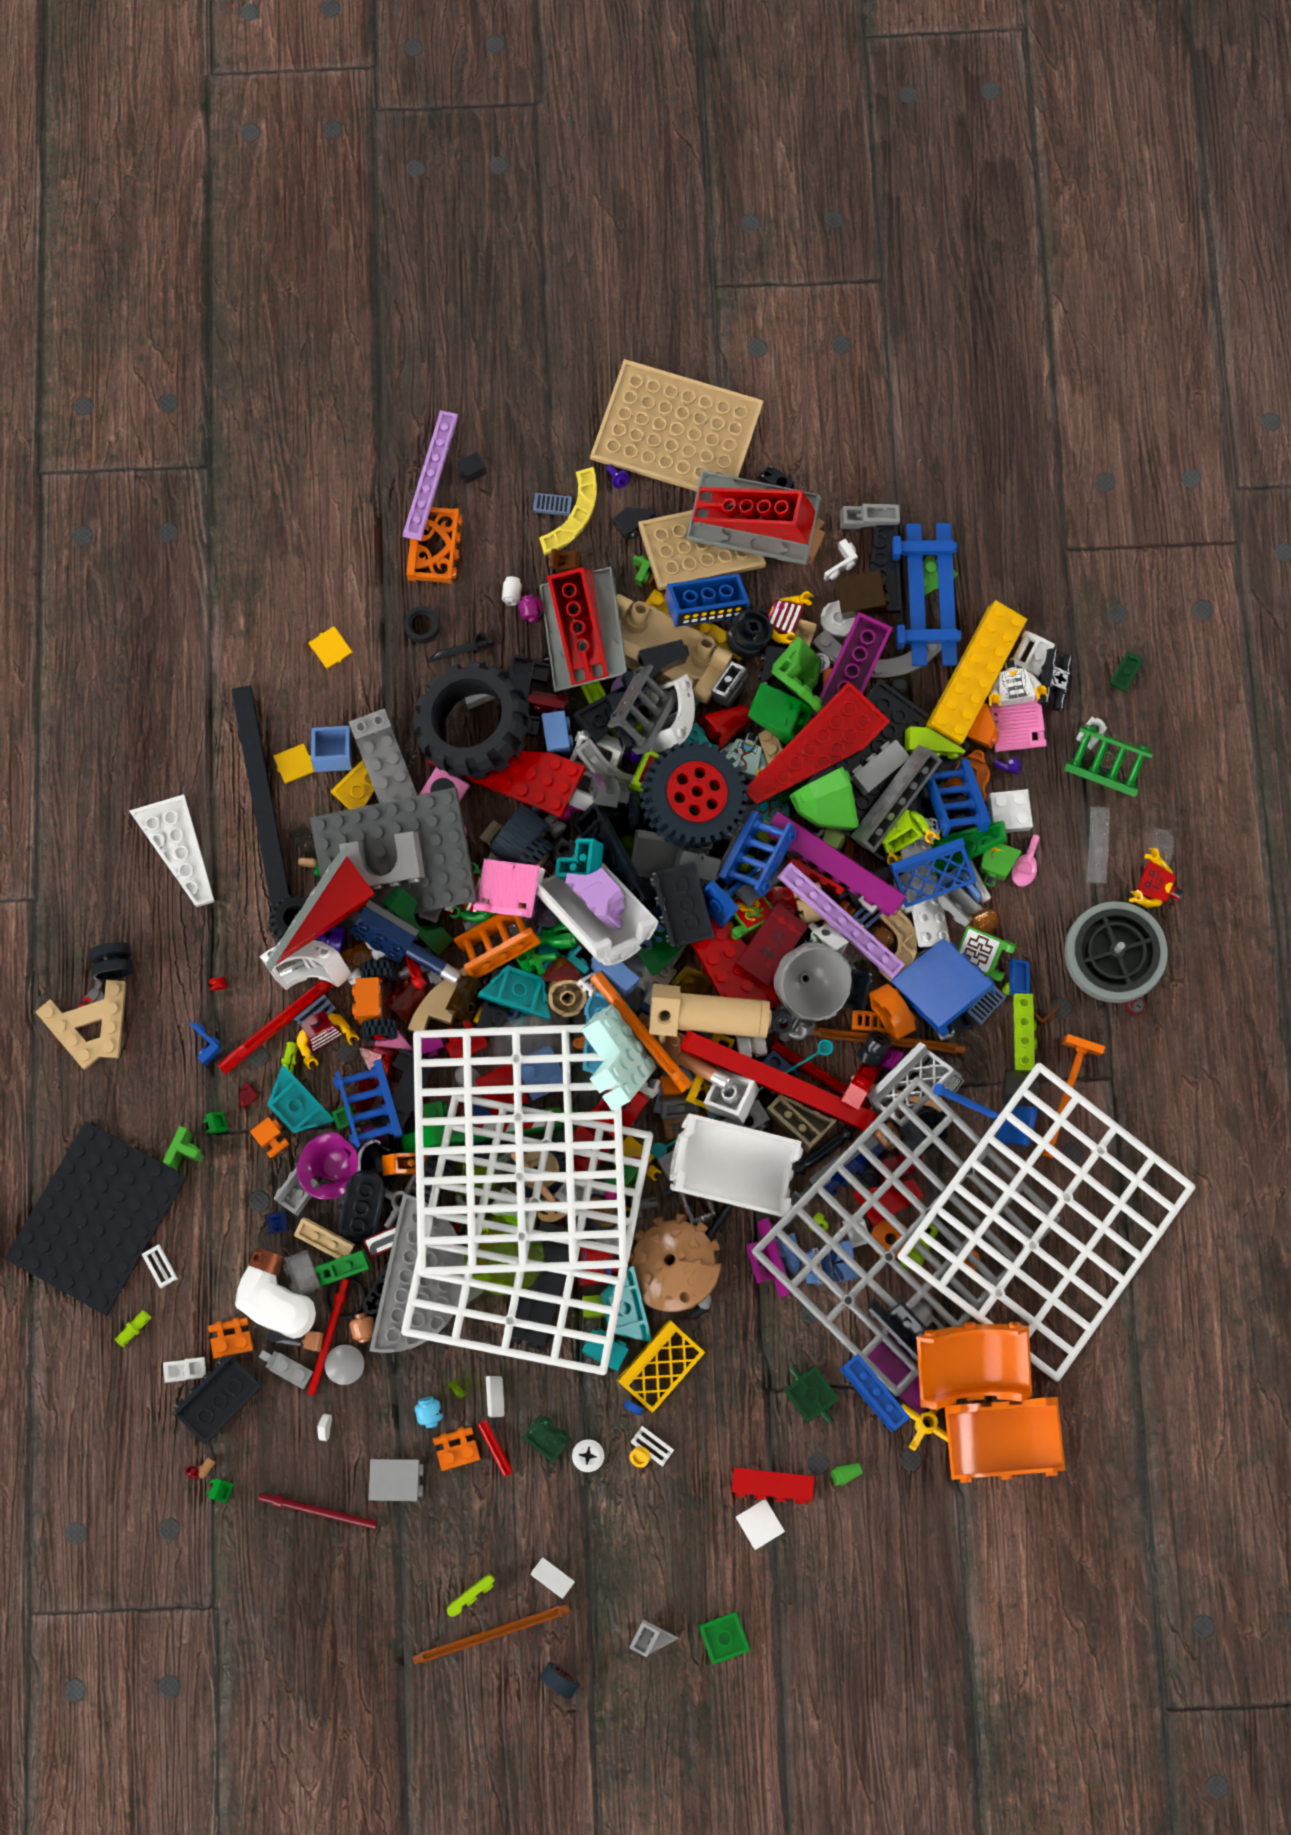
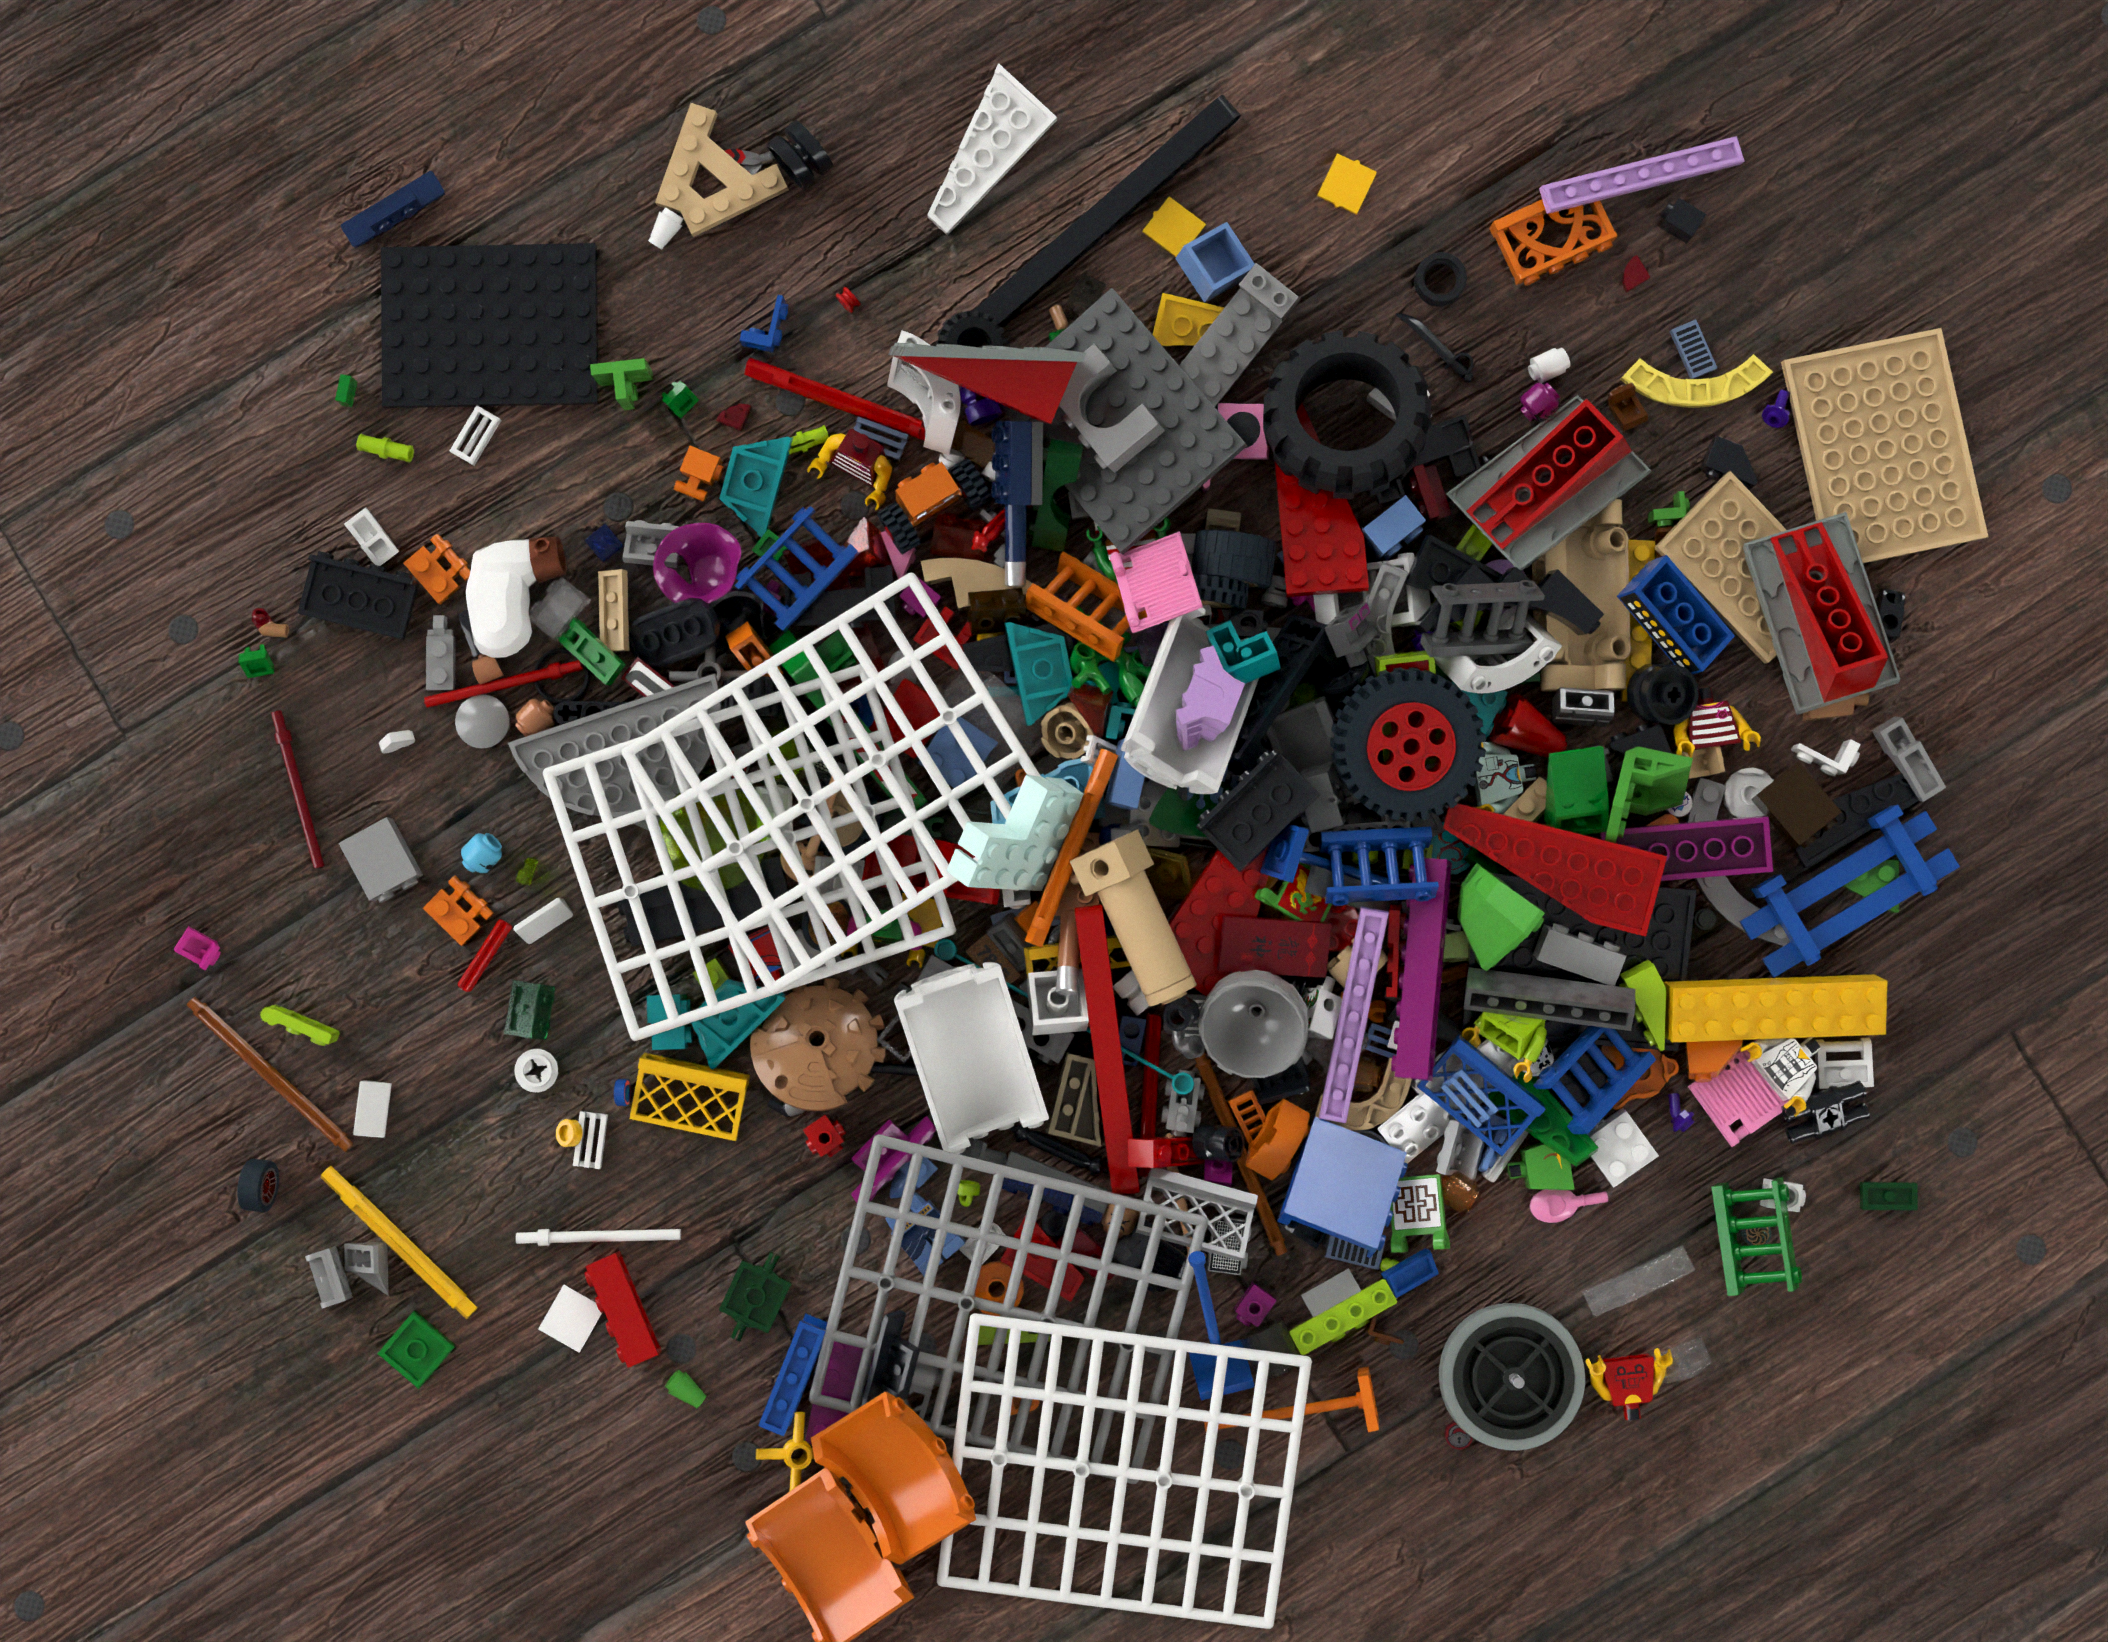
camera: 60 degrees right, 10 degrees up
(81, 1332) = (346, 390): none -> green tile
(103, 1071) = (665, 227): none -> white cone
(382, 1634) = (198, 948): none -> dark pink bracket
(487, 513) = (1634, 274): none -> dark red tile
(645, 1670) = (329, 1276): none -> light grey hinge
(648, 1609) = (399, 1243): none -> yellow piece
(698, 1511) = (545, 1237): none -> white bar
(728, 1297) = (833, 1129): none -> red brick
(842, 1061) = (1181, 1112): none -> light grey brick
(946, 876) = (1485, 1115): none -> medium blue tile
(987, 1084) = (1254, 1305): none -> magenta brick
(1005, 1033) = (1330, 1292): none -> light grey hinge

